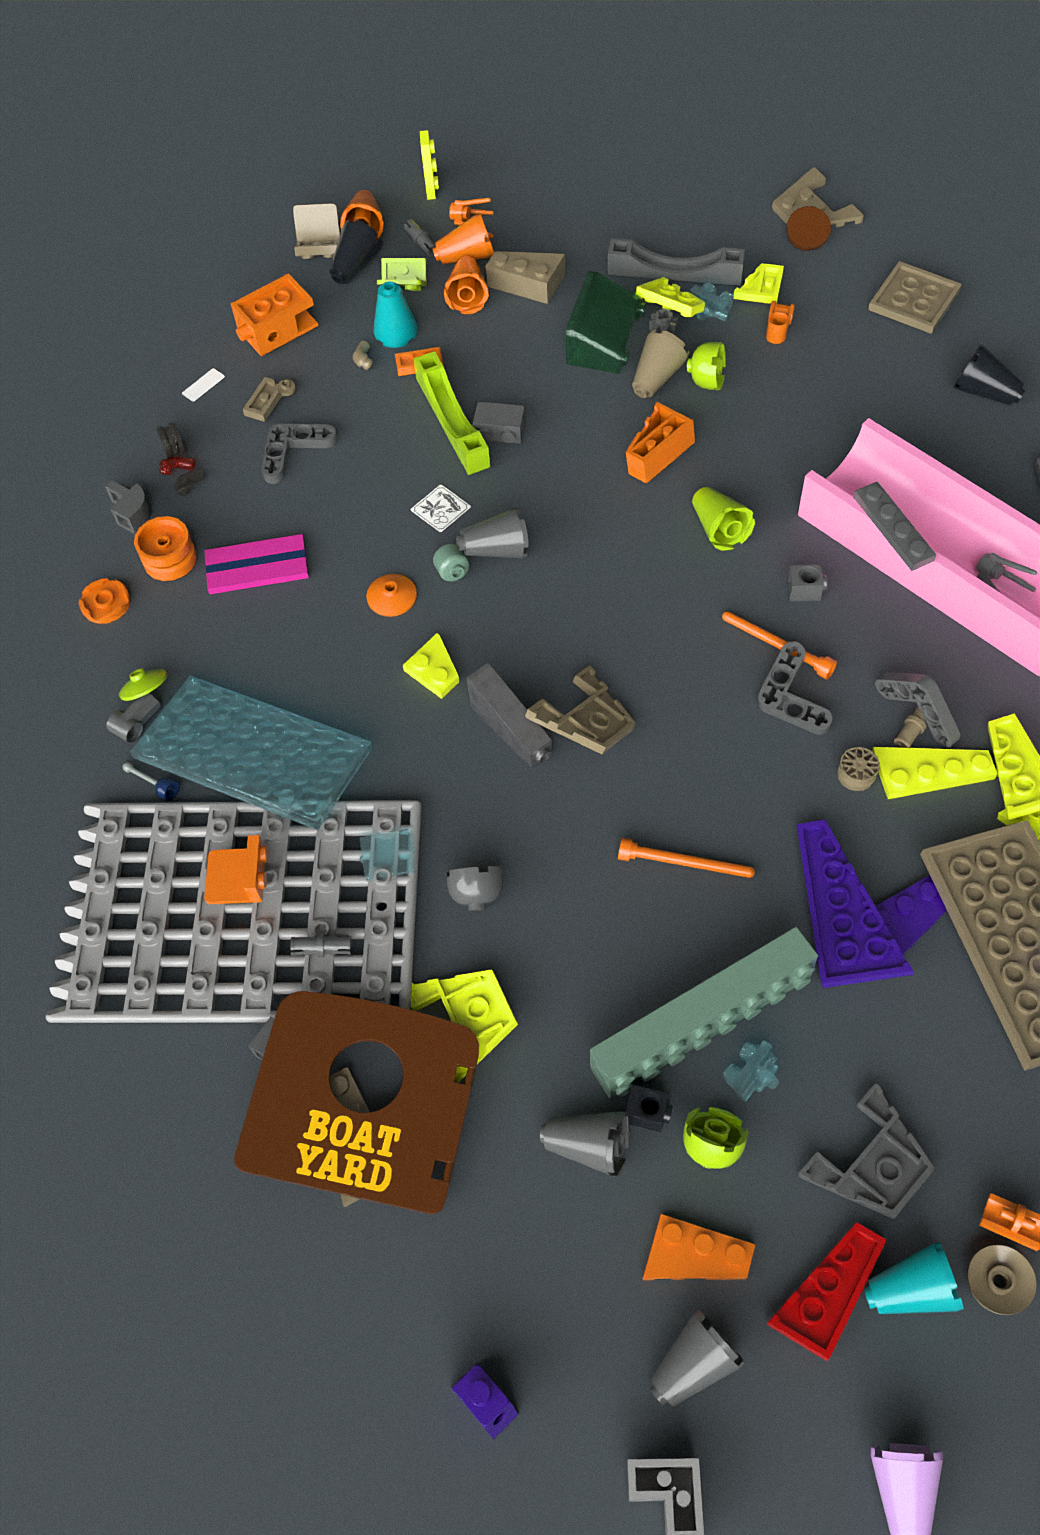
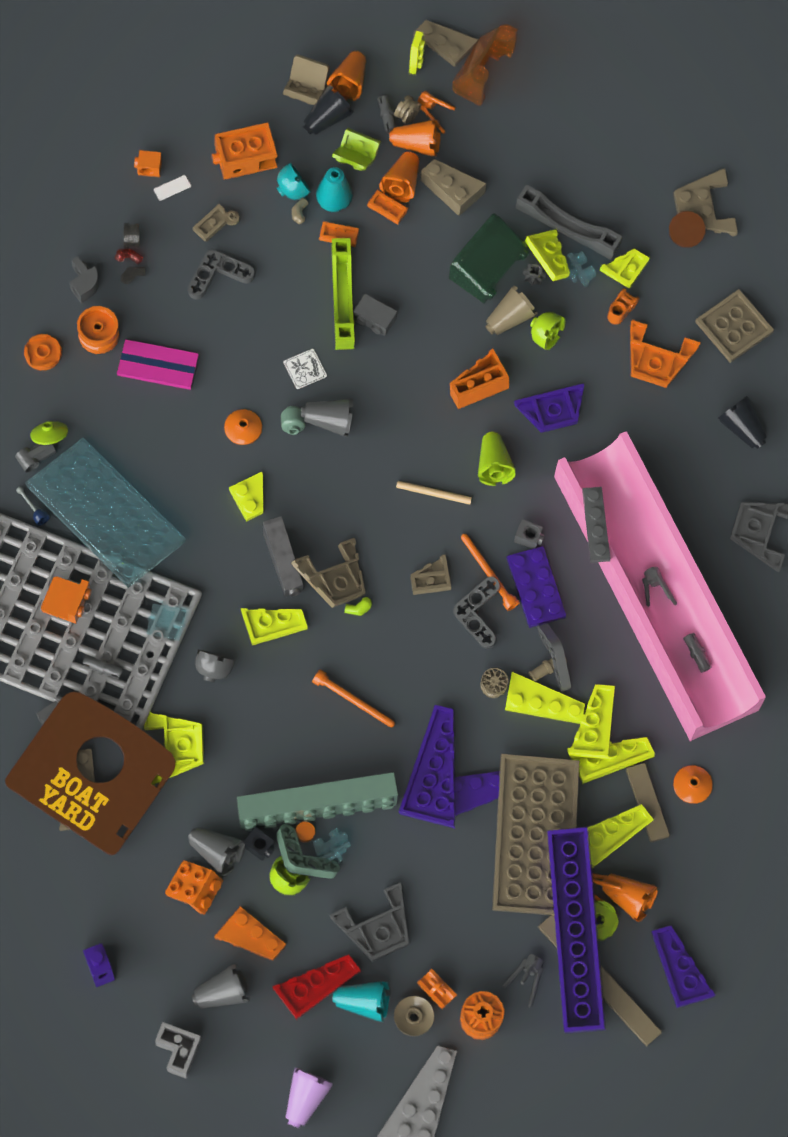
camera: 10 degrees right, 10 degrees up
(165, 367) = (148, 163): none -> orange brick
(342, 329) = (291, 183): none -> teal cylinder
(441, 222) = (407, 109): none -> dark tan wheel
(458, 161) = (446, 42): none -> dark tan wing
(462, 318) = (387, 207): none -> orange plate
(501, 169) = (472, 76): none -> clear orange windscreen
(530, 807) = (272, 624): none -> neon yellow wing
(579, 1210) = (194, 886): none -> orange bracket
(637, 745) = (359, 609): none -> lime arm
(663, 581) = (434, 492): none -> tan bar
(703, 1065) = (305, 831): none -> orange tile
(711, 675) = (431, 578): none -> dark tan wing
(719, 1112) = (299, 863): none -> sand green beam
(757, 444) = (553, 408): none -> dark purple wing
(846, 361) = (654, 363): none -> orange wing
(847, 639) = (536, 587): none -> dark purple plate

